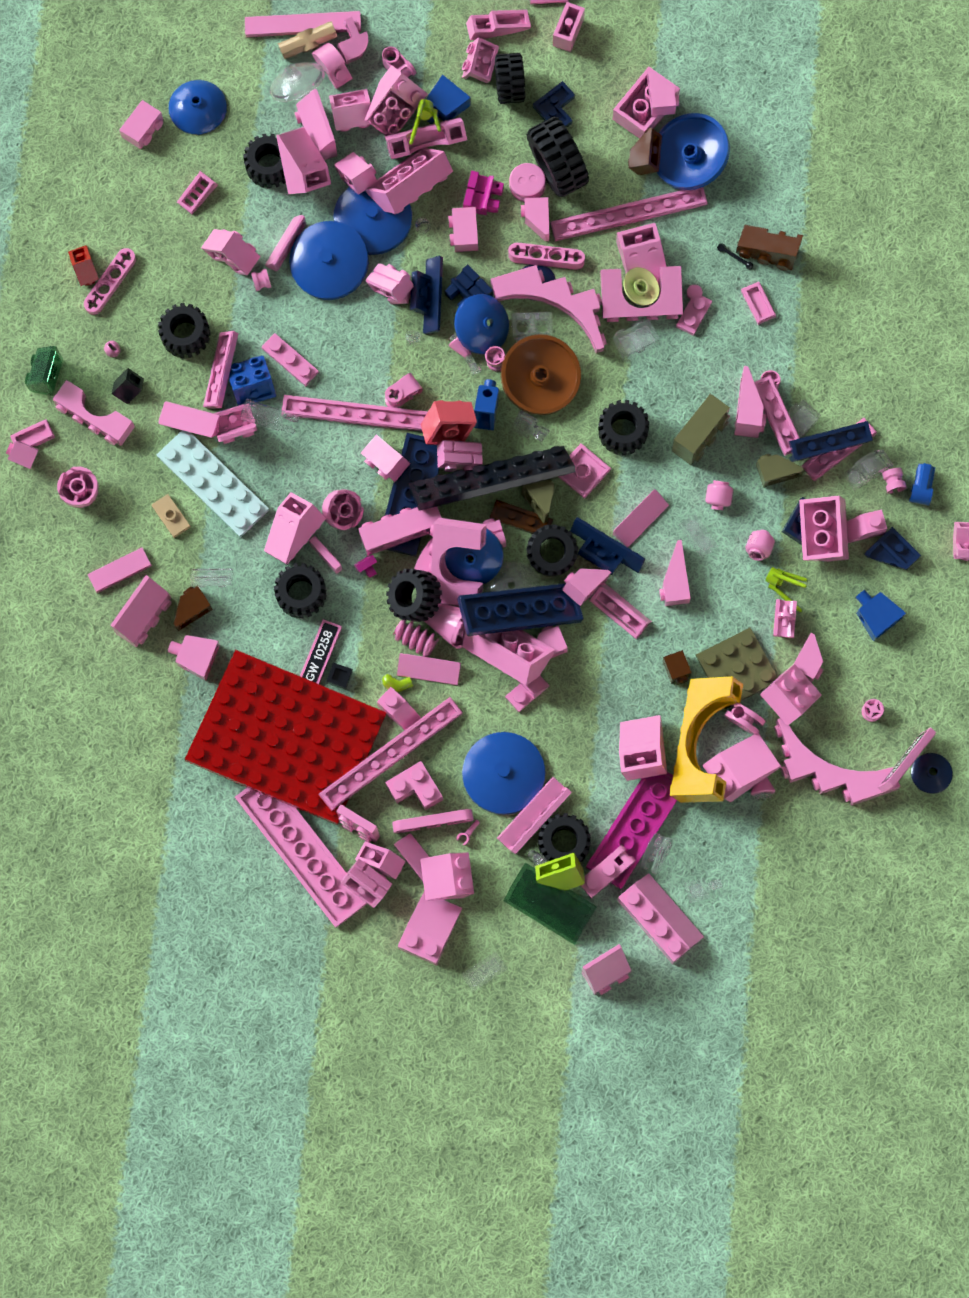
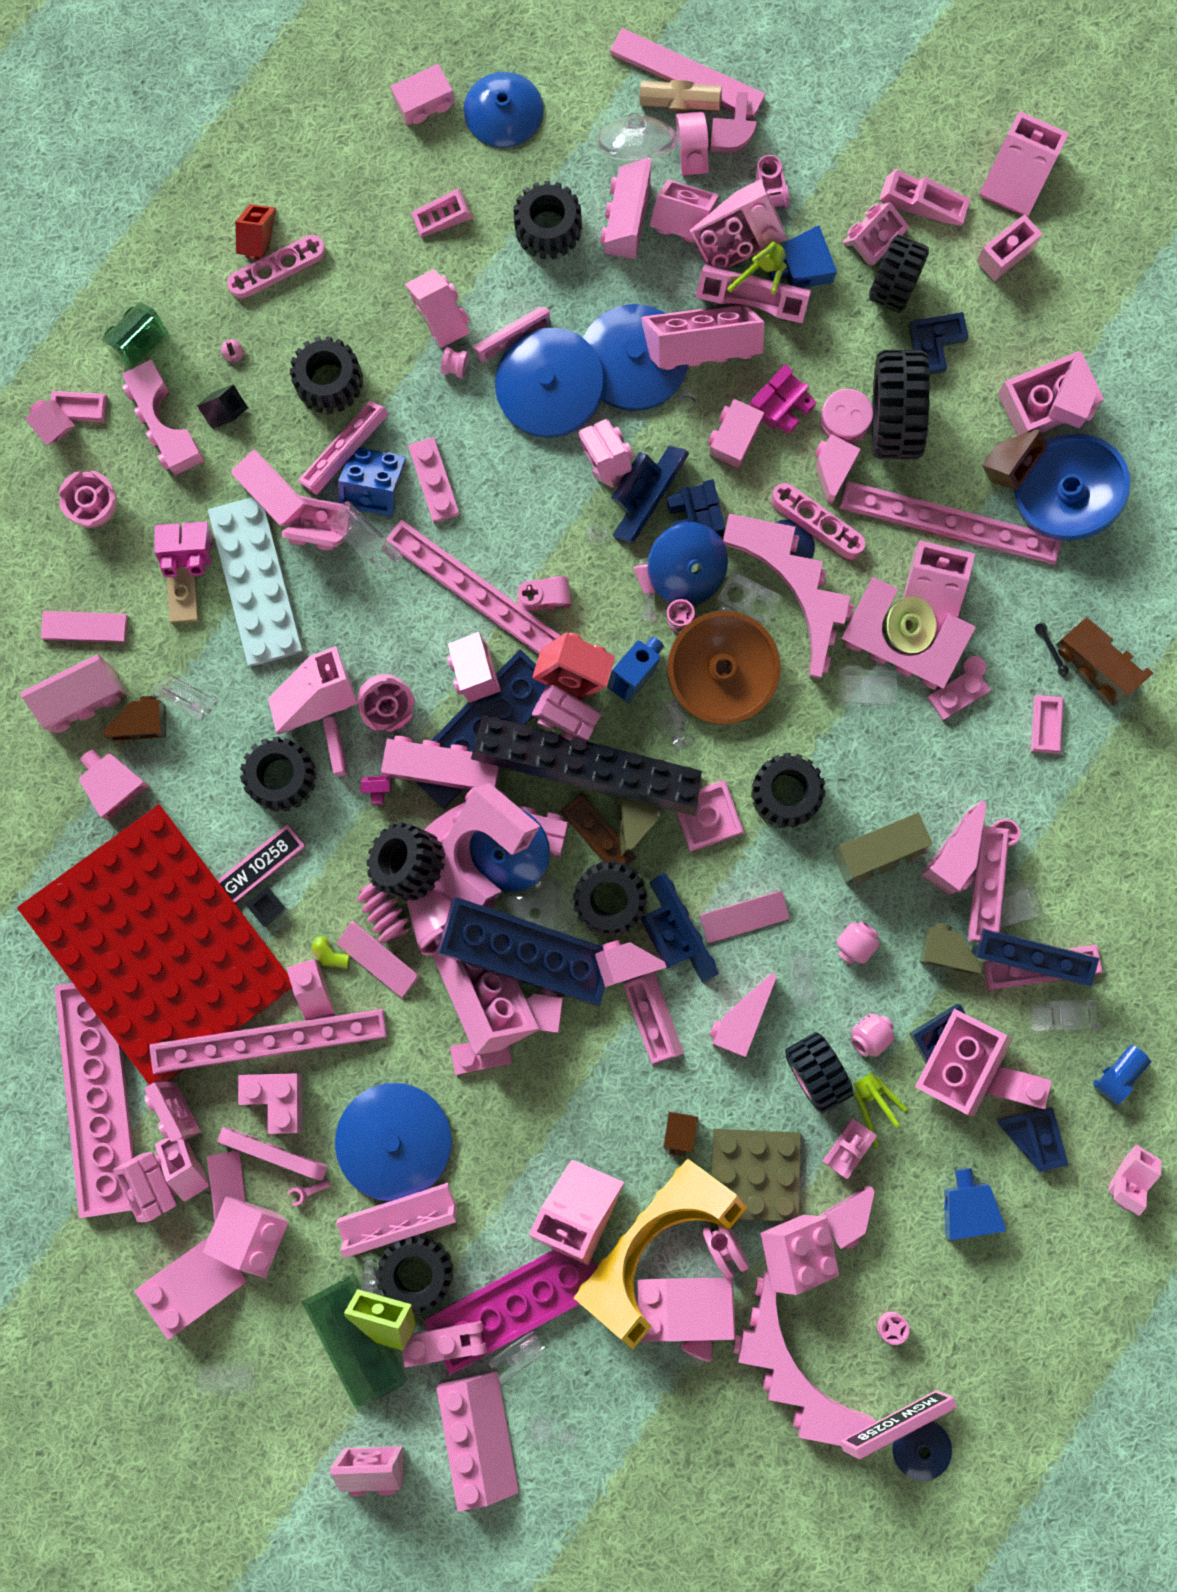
camera: 30 degrees right, 5 degrees up
(154, 492) = (183, 547): none -> hips
(302, 162) = (582, 241): bright pink slope -> none
(356, 172) = (644, 291): bright pink brick -> none
(740, 582) = (819, 1072): none -> black wheel
(894, 480) = (1089, 1048): bright pink wheel -> none

